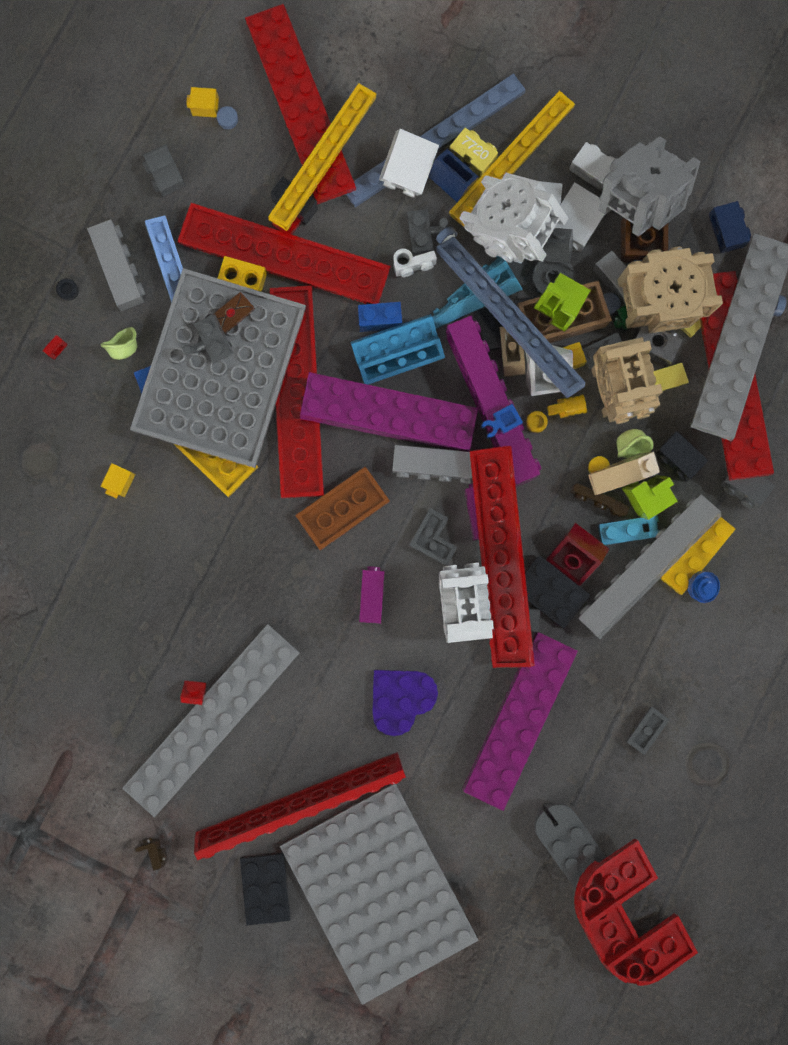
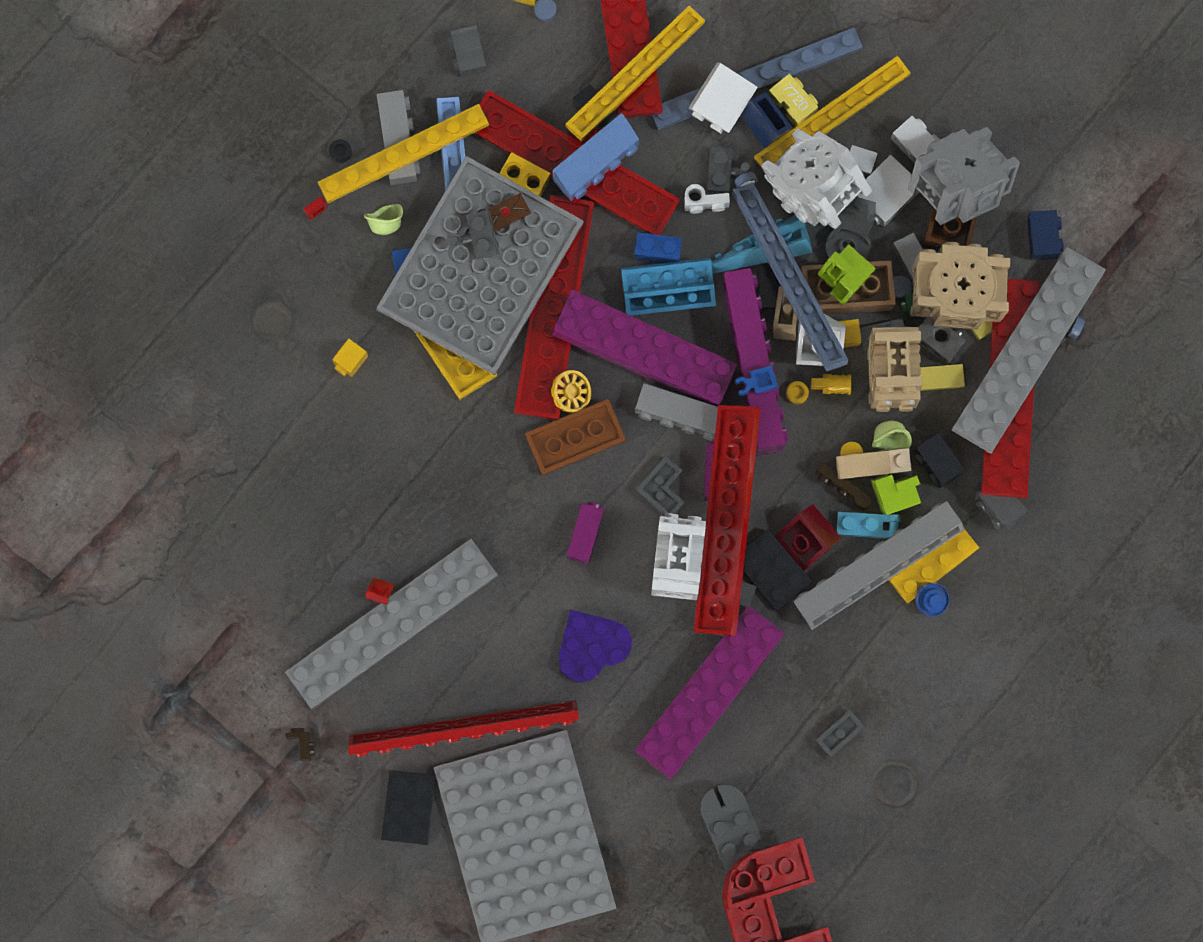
camera: 15 degrees right, 5 degrees down
(123, 278) = (403, 153): none -> yellow plate
(304, 243) = (596, 158): none -> medium blue slope
(329, 466) = (571, 391): none -> yellow wheel

